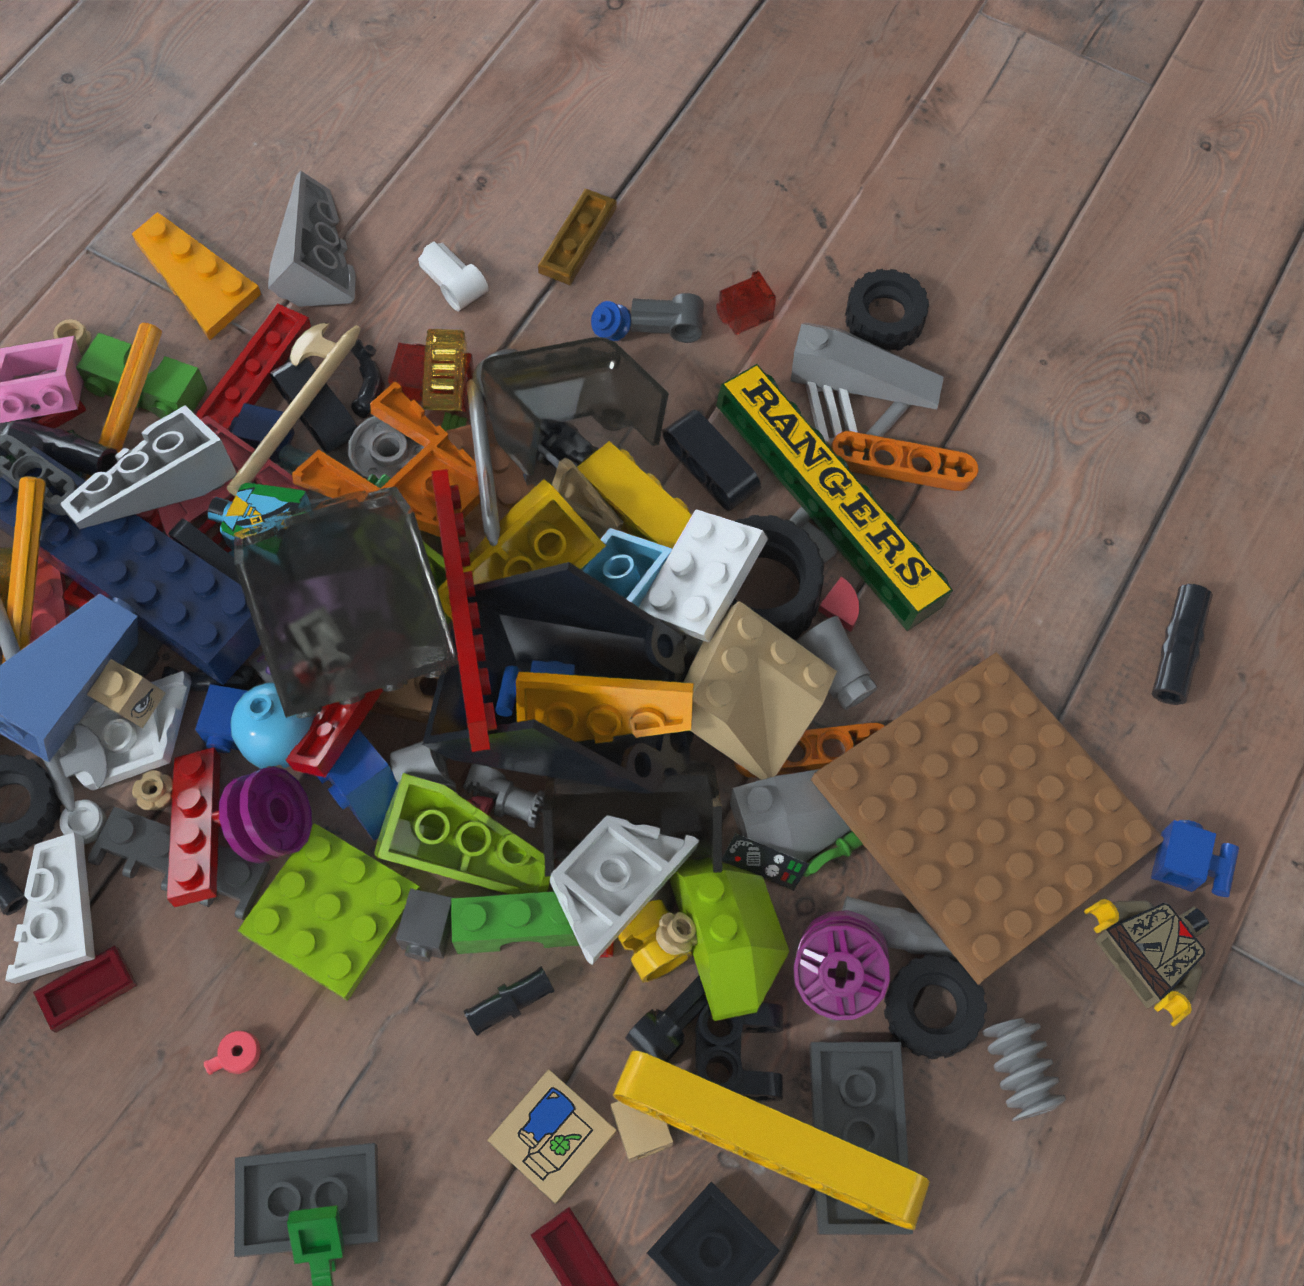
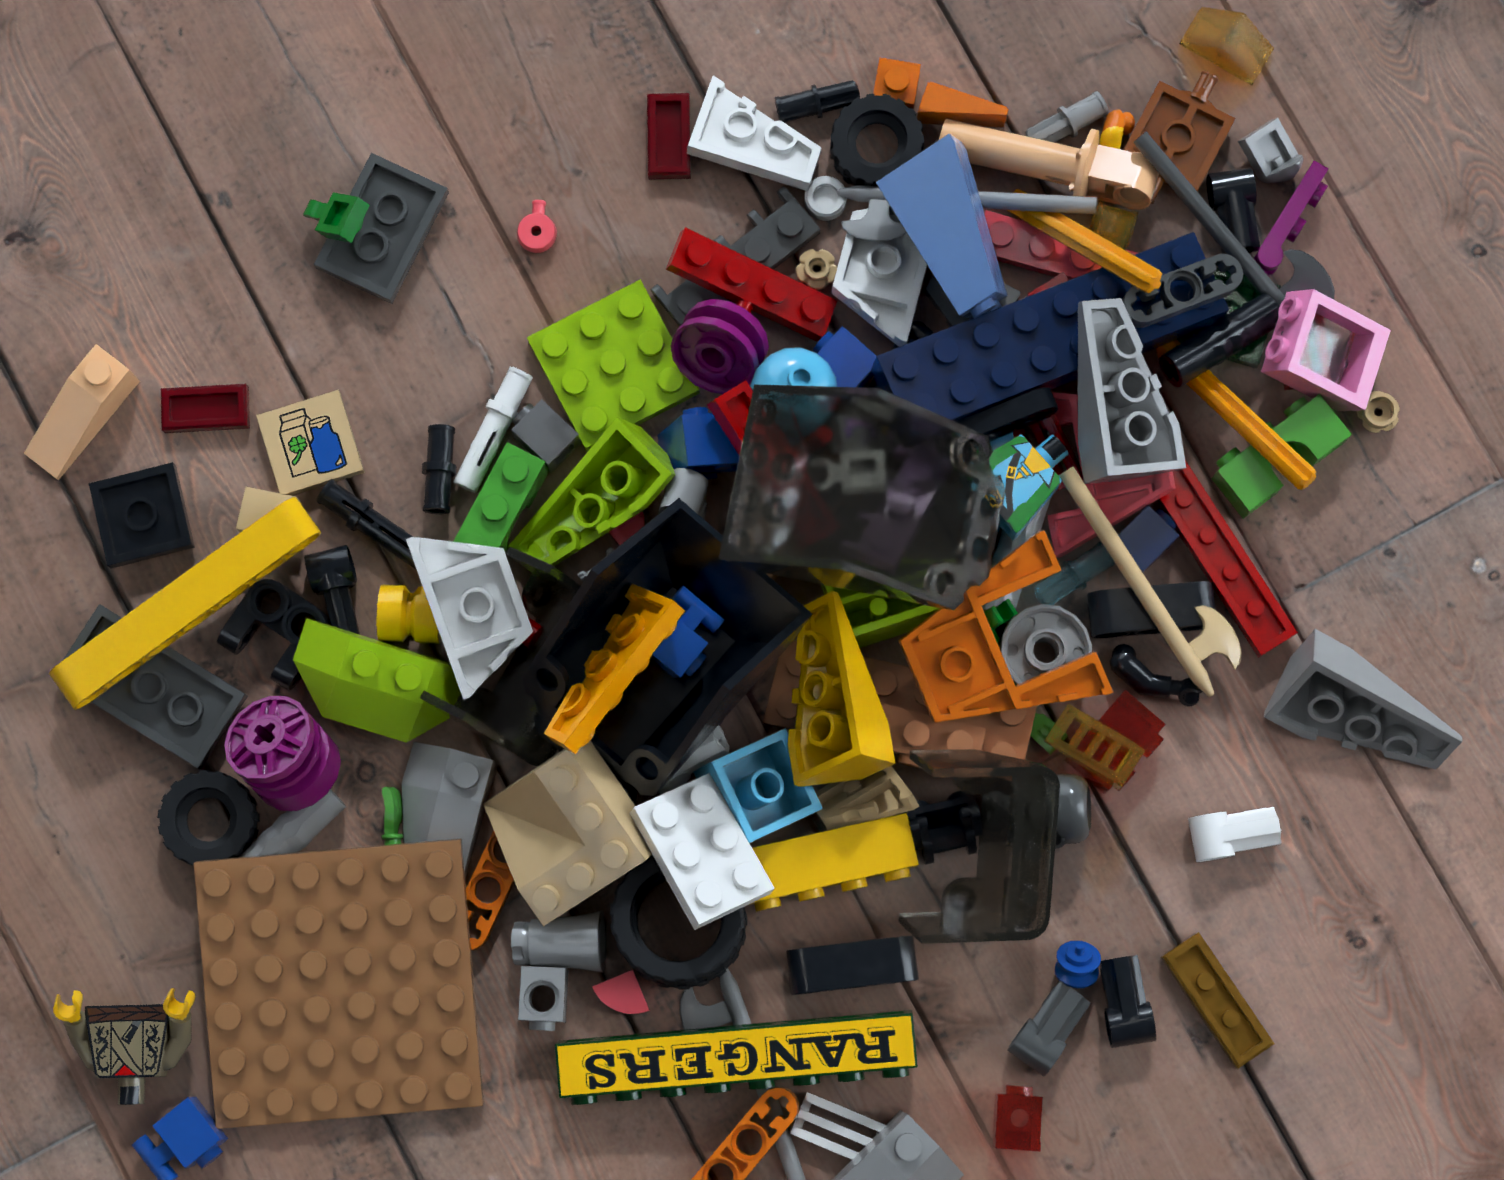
camera: 125 degrees right, 15 degrees up
(126, 693) = (904, 280): tan brick -> none
(202, 280) = (1389, 573): light orange wing -> none
(448, 975) = (493, 429): none -> white pin
(464, 614) = (763, 588): red plate -> none
(483, 463) = (955, 720): light grey piece -> none
(590, 1076) = (335, 499): none -> black pin
(624, 276) = (1127, 1014): none -> black piece
(670, 939) = (397, 619): tan plate -> none
(764, 861) = (418, 753): black sticker -> none
(891, 638) = (530, 980): none -> light grey brick
(1024, 1068) = (110, 858): light grey piece -> none

